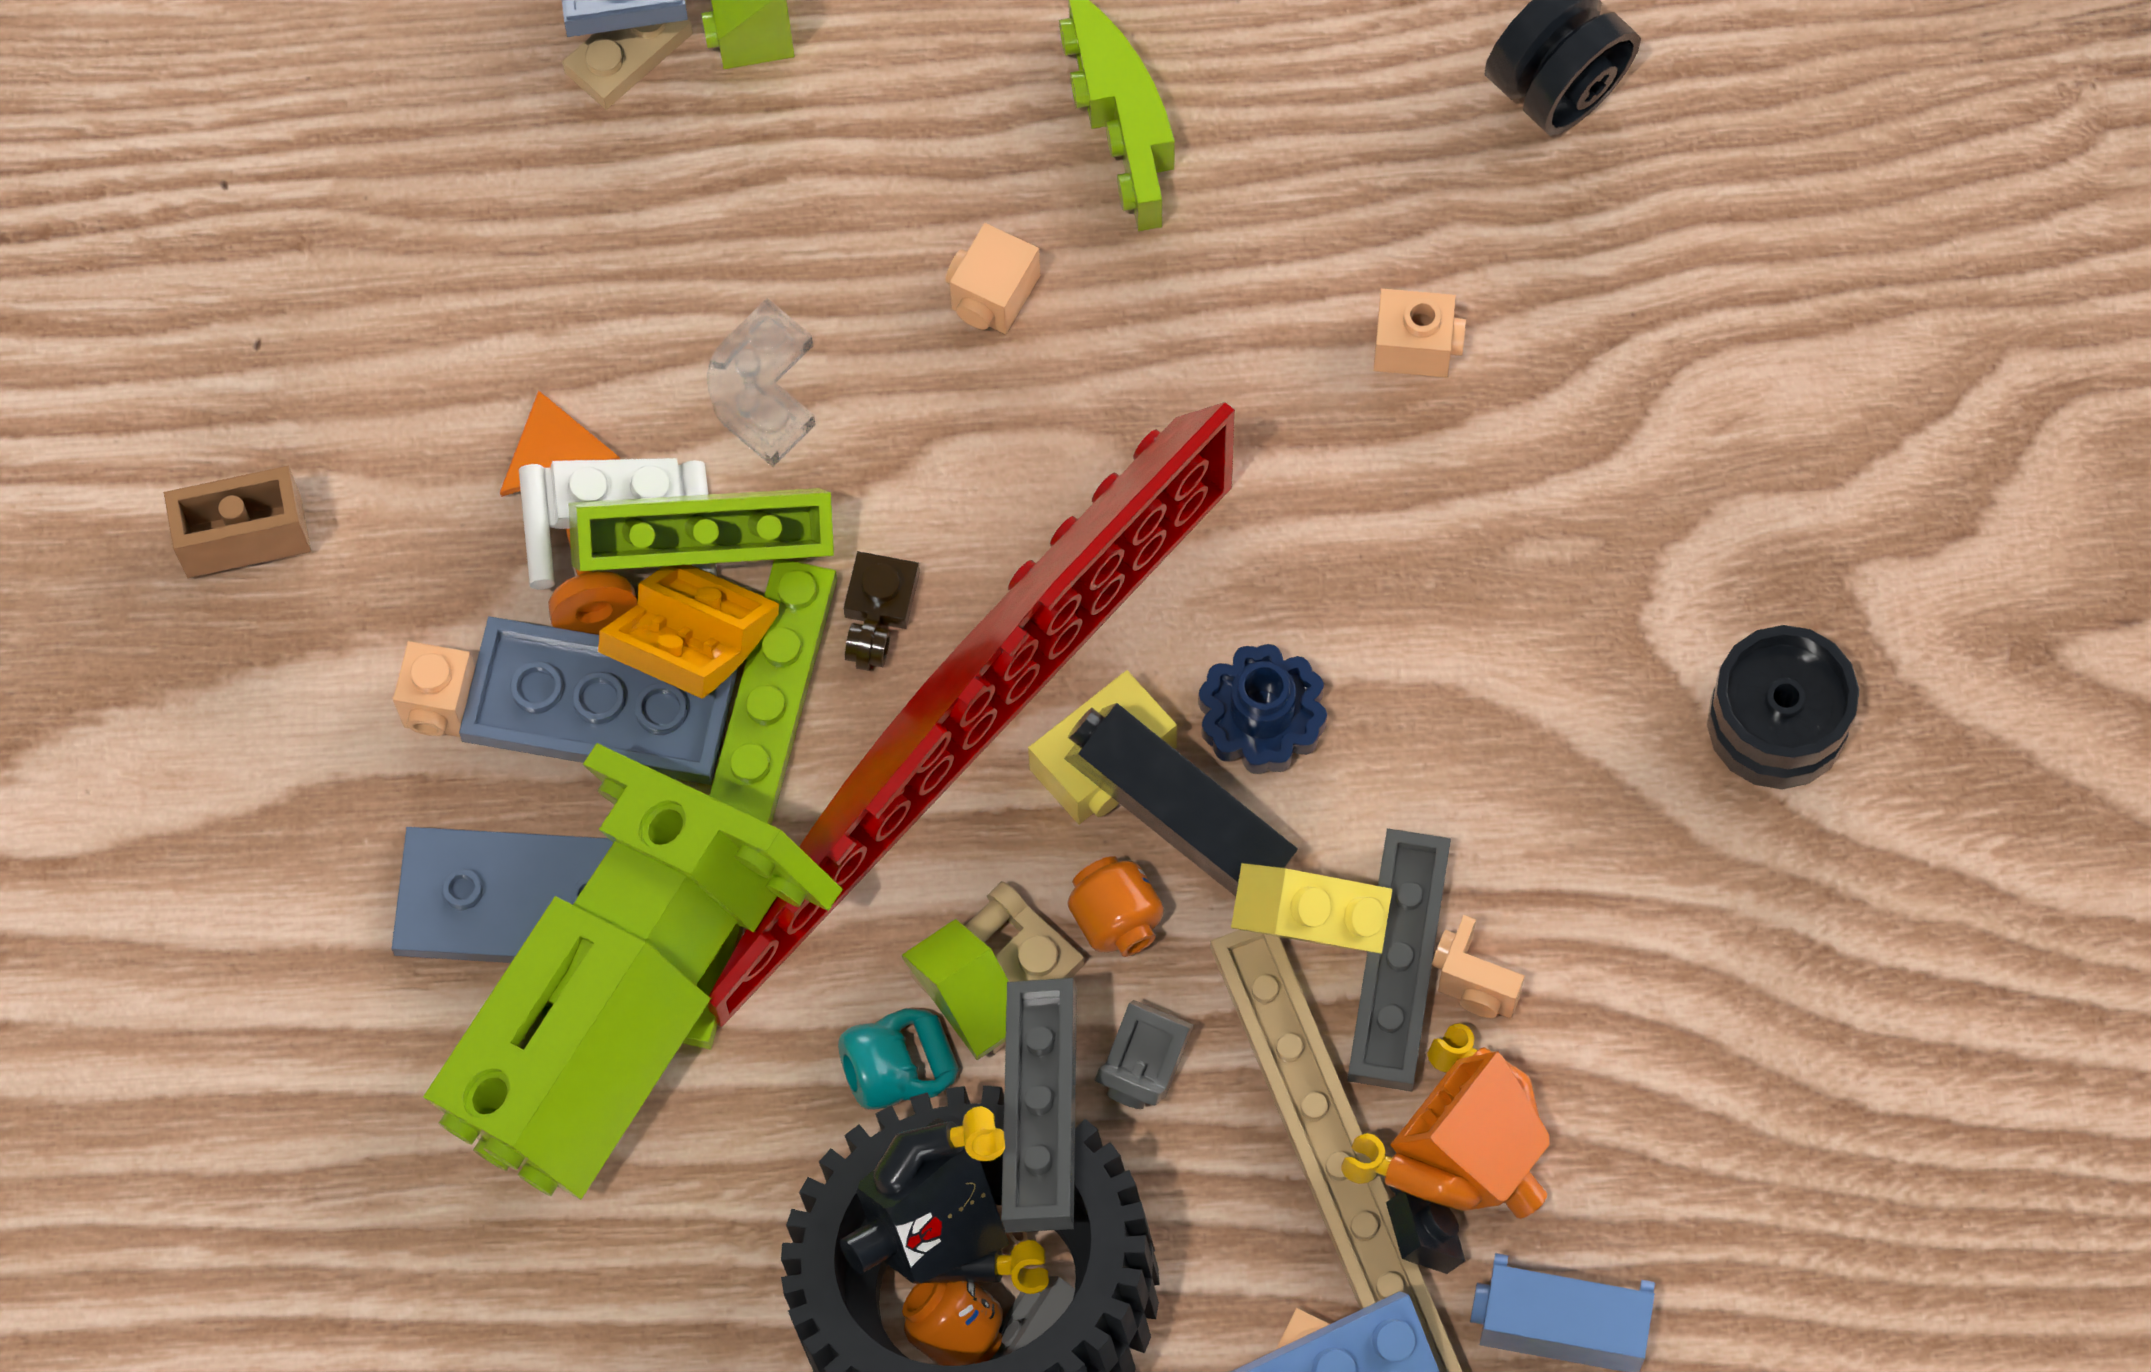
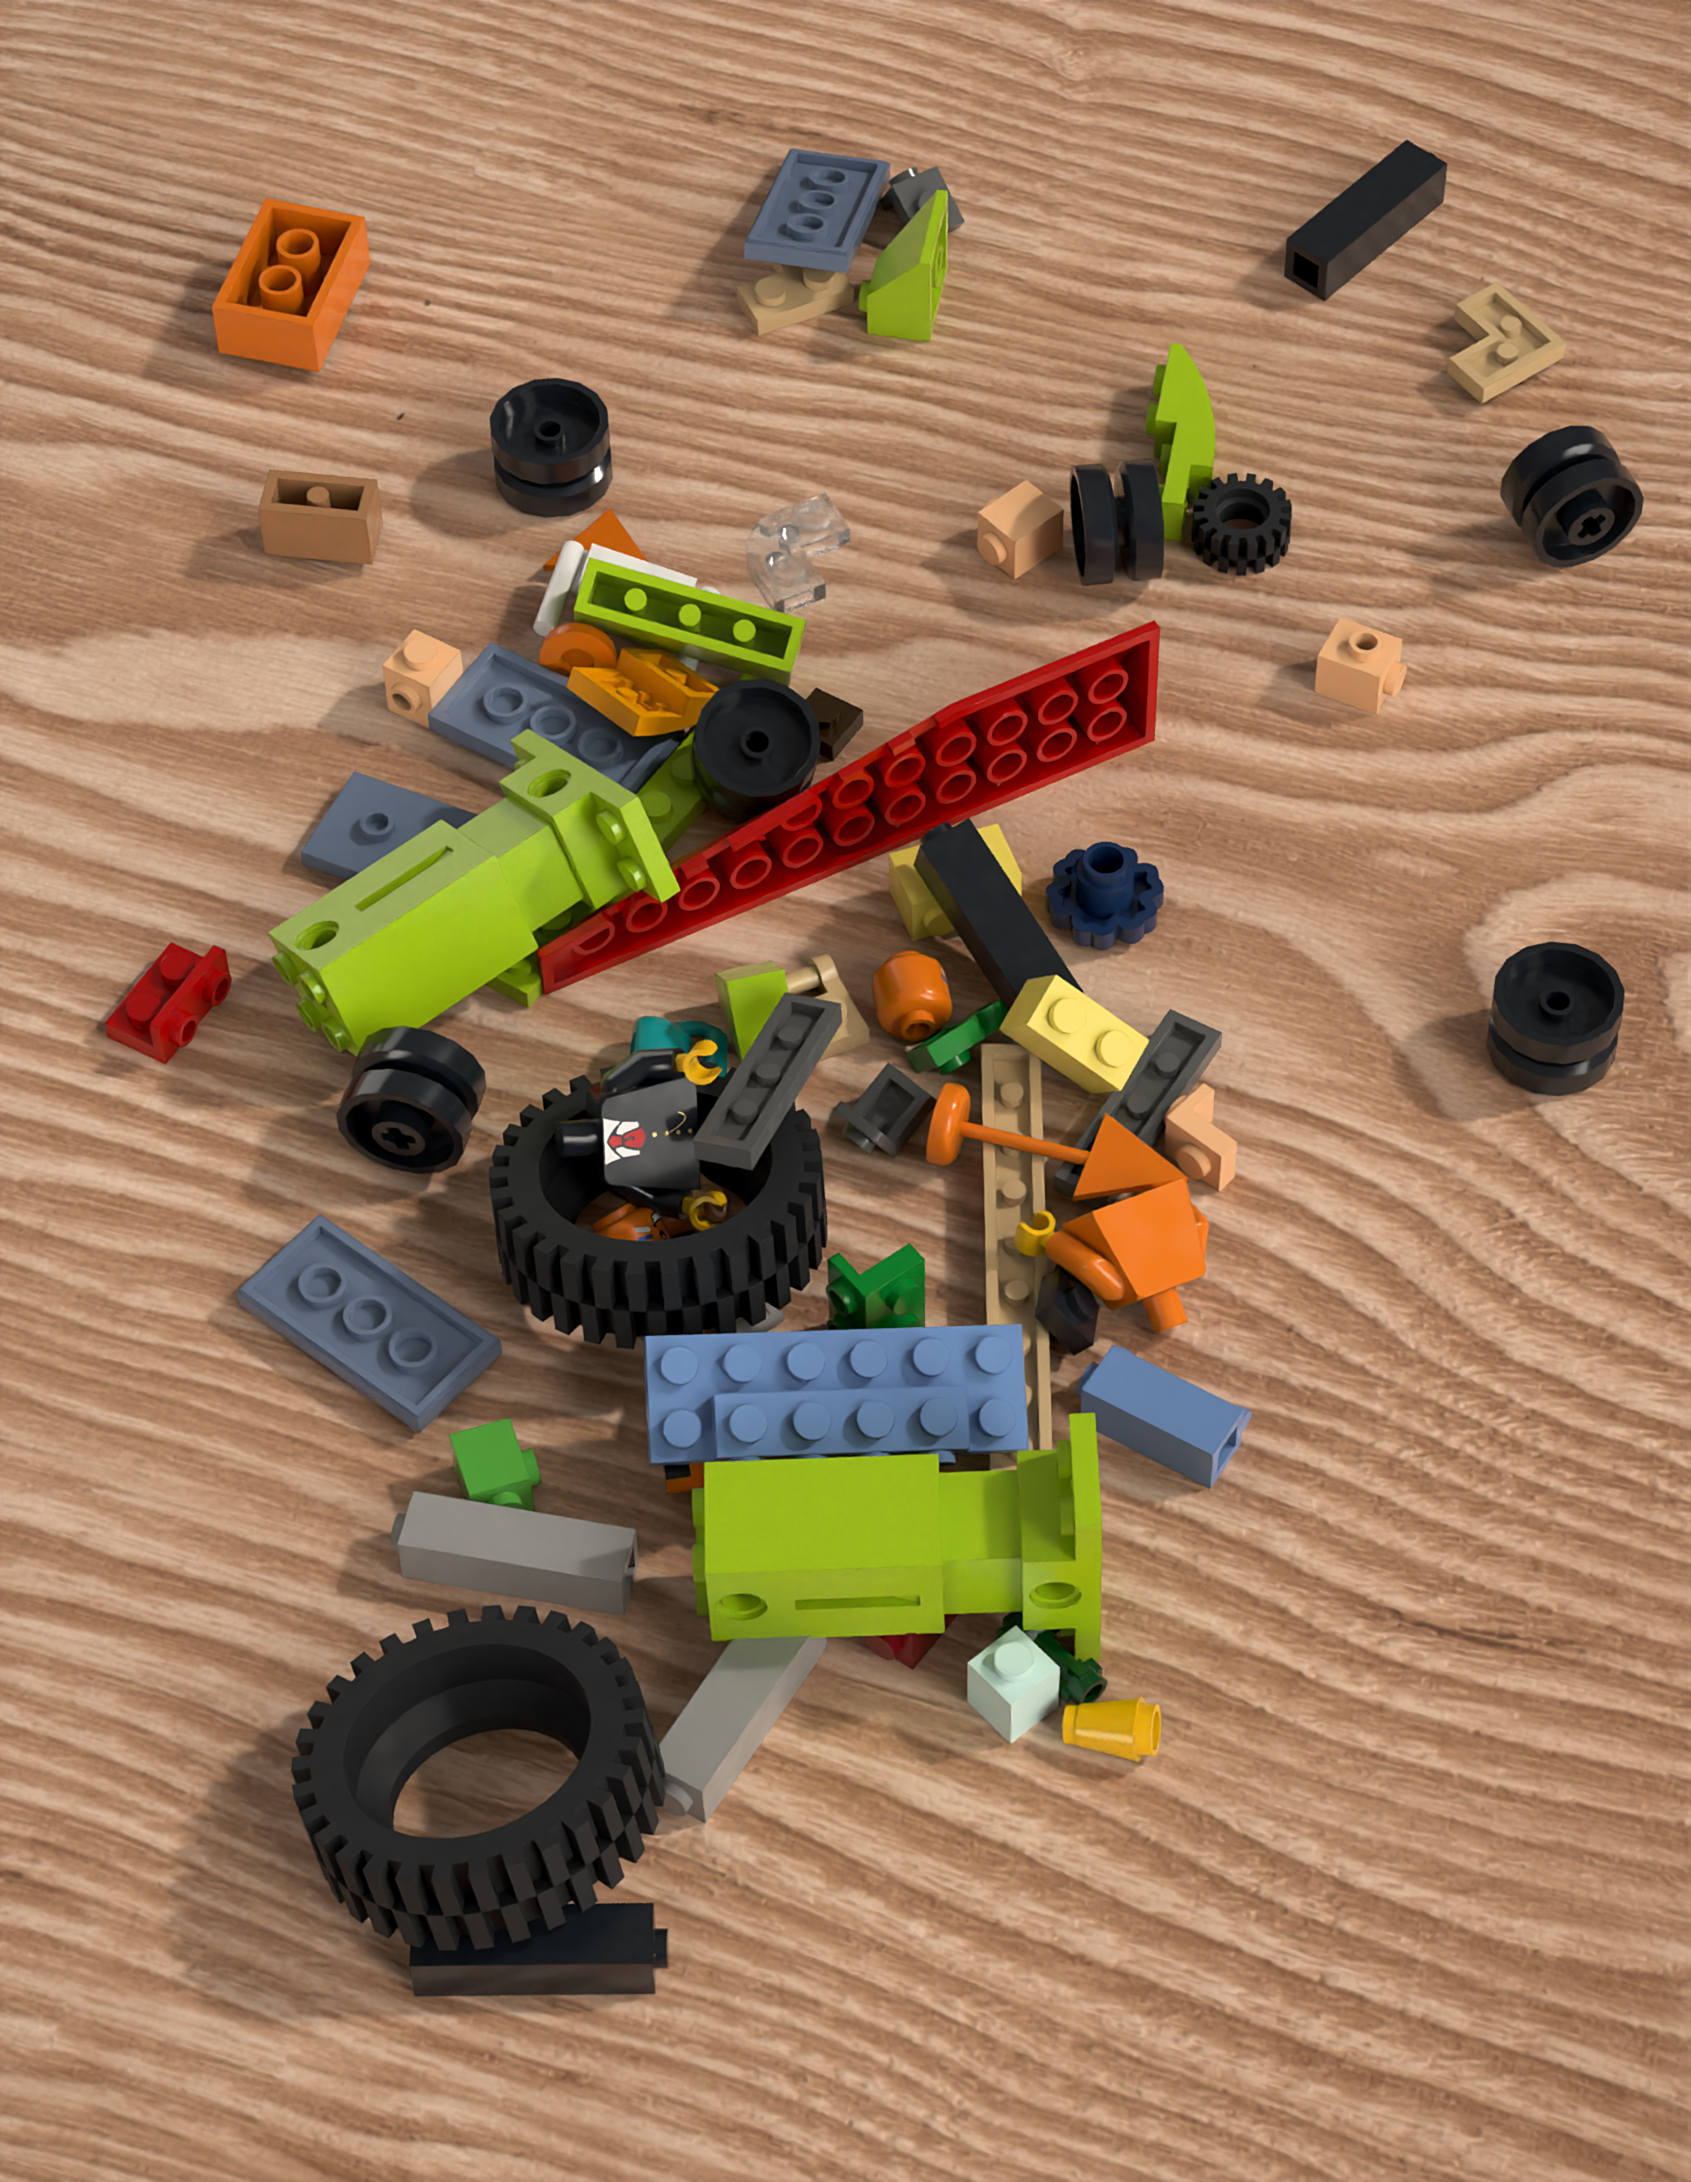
camera: 20 degrees right, 15 degrees down
(74, 226) = (291, 285): none -> orange brick
(328, 1183) = (170, 1001): none -> red bracket
(453, 346) = (551, 447): none -> black wheel
(653, 1232) = (411, 1100): none -> black wheel
(803, 682) = (754, 748): none -> black wheel
(1102, 246) = (1121, 520): none -> black wheel
(1182, 941) = (950, 1046): none -> green plate
(1223, 160) = (1241, 546): none -> black tyre
(1248, 1307) = (879, 1298): none -> green bracket
(1410, 1043) = (1113, 1166): none -> orange piece

